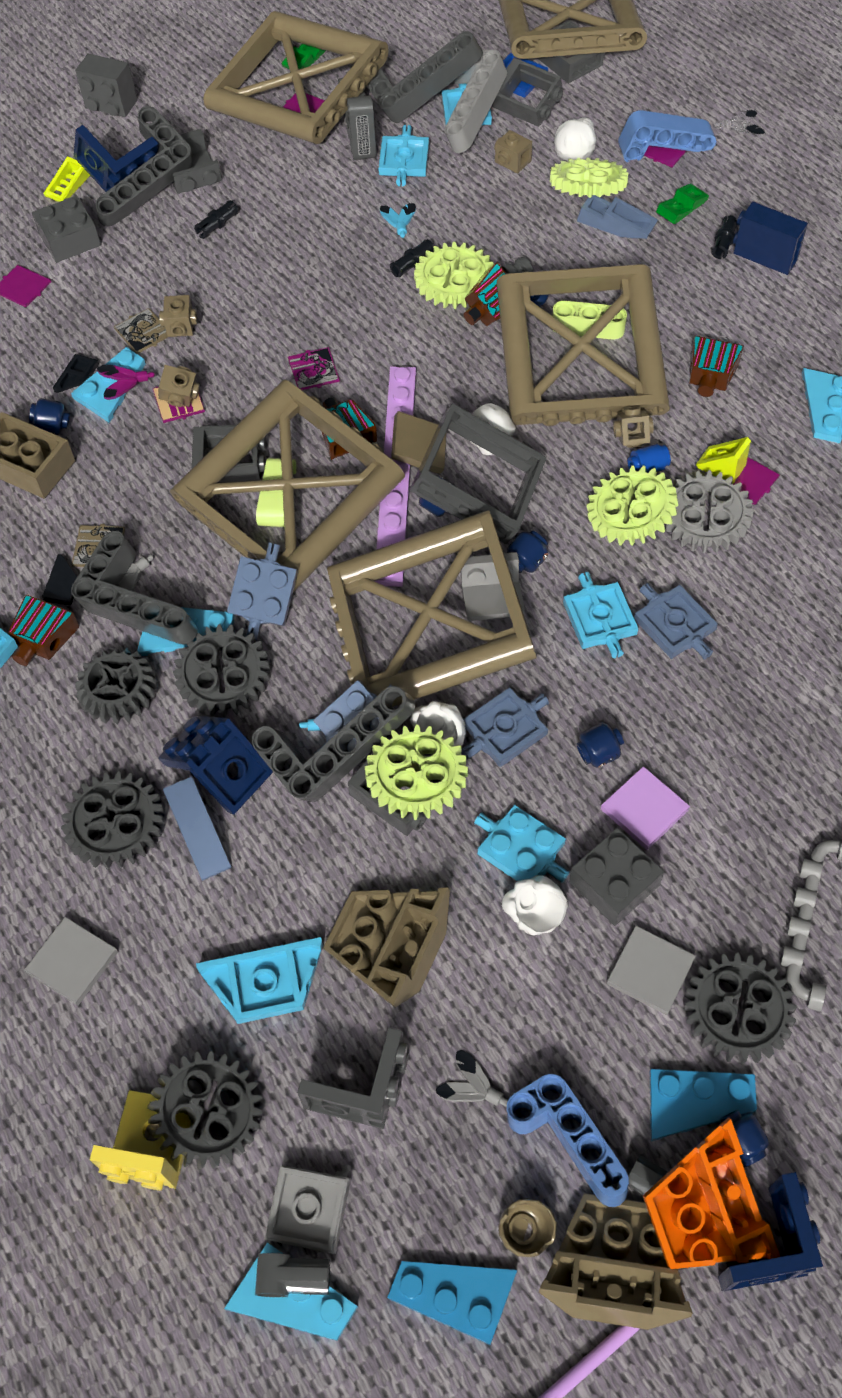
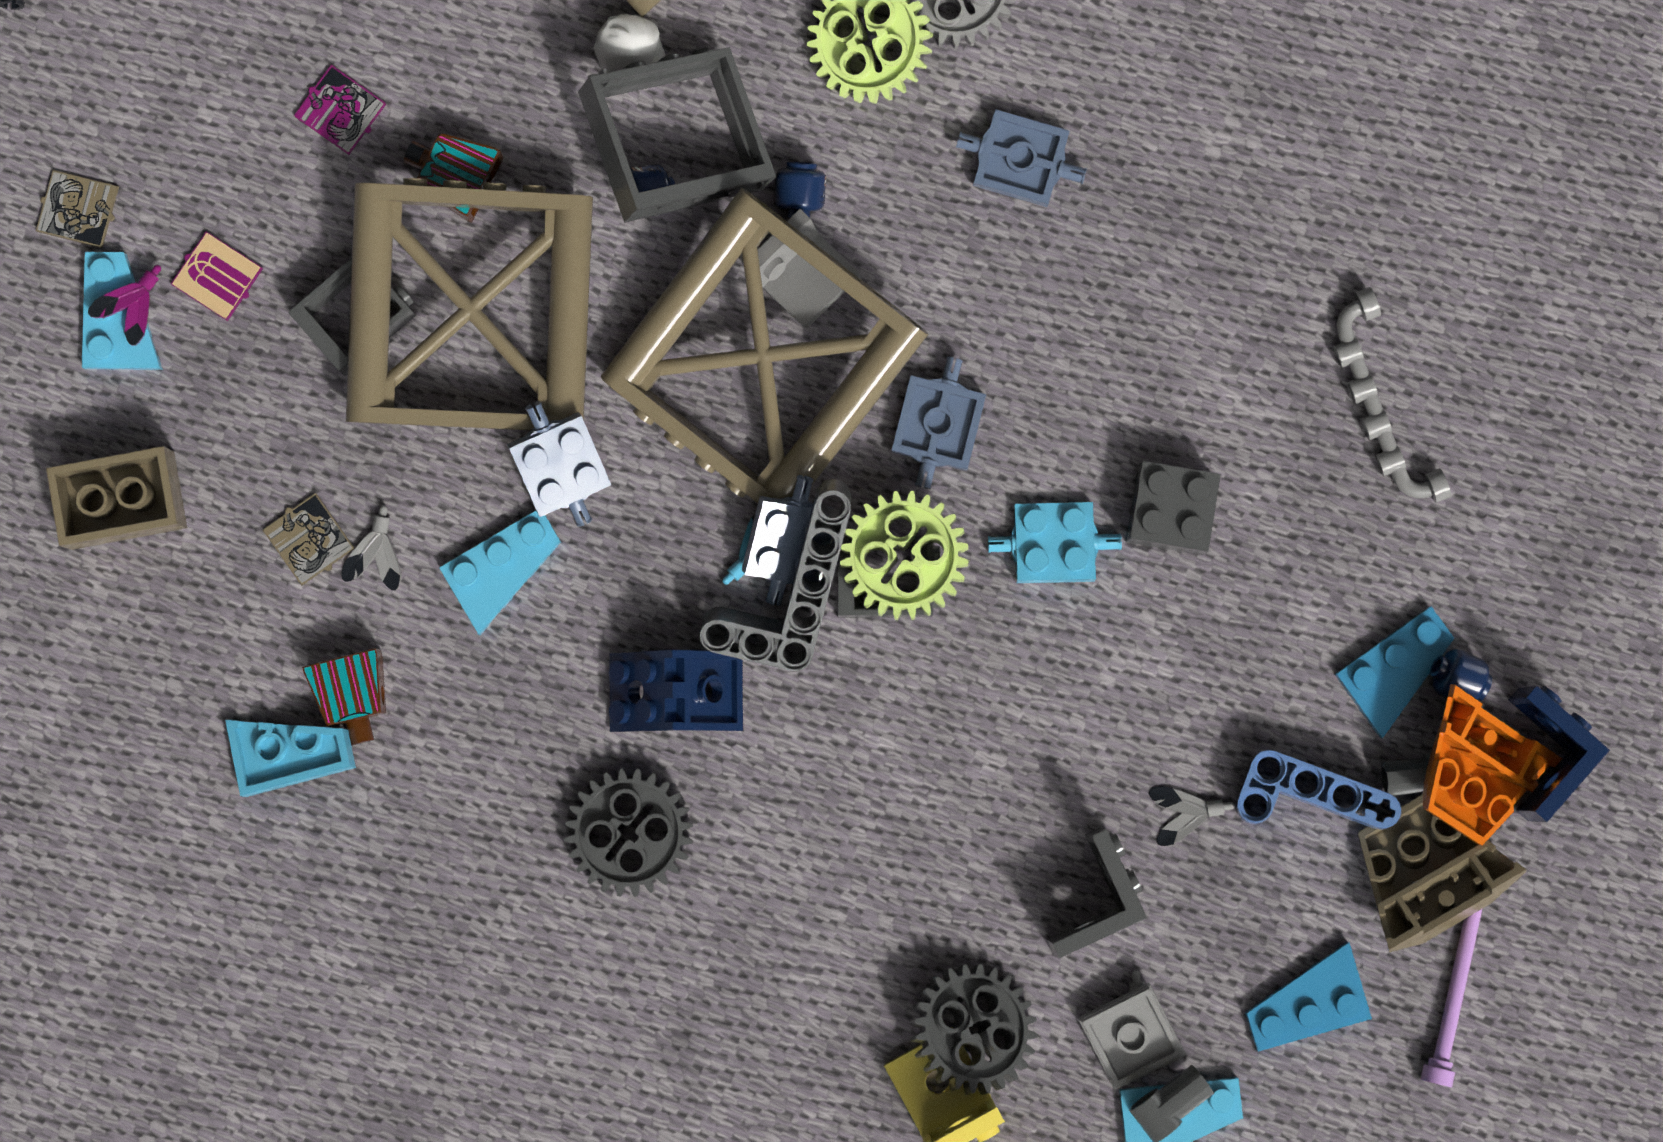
camera: 45 degrees left, 25 degrees up
(49, 415) = (90, 421): dark blue head -> none
(60, 583) = (313, 616): black tile -> none
(71, 961) = (717, 996): light grey tile -> none
(76, 373) = (56, 331): black tile -> none
(99, 594) = (419, 592): dark grey beam -> none
(110, 700) = (490, 707): dark grey gear -> none
(178, 316) = (114, 163): dark tan brick -> none
(178, 386) = (201, 271): dark tan brick -> none
(194, 673) = (617, 561): dark grey gear -> none
(197, 828) = (723, 776): sand blue slope -> none
(264, 980) = (919, 870): medium azure wing -> none
(270, 503) = (467, 345): yellowish green beam -> none
(390, 938) = (1006, 741): dark tan wedge -> none
(394, 507) = (549, 165): lavender plate -> none
(412, 440) = (557, 131): dark tan tile -> none
(440, 717) = (876, 474): white hair -> none
(515, 1222) = (1348, 897): dark tan hair -> none
(535, 905) = (1120, 599): white hair -> none
(600, 615) = (936, 210): medium azure plate -> none
(600, 745) = (1052, 372): dark blue head -> none
(645, 808) = (1143, 406): lavender tile -> none
(651, 970) = (1268, 574): light grey tile -> none
(770, 1016) = (1409, 538): dark grey gear -> none

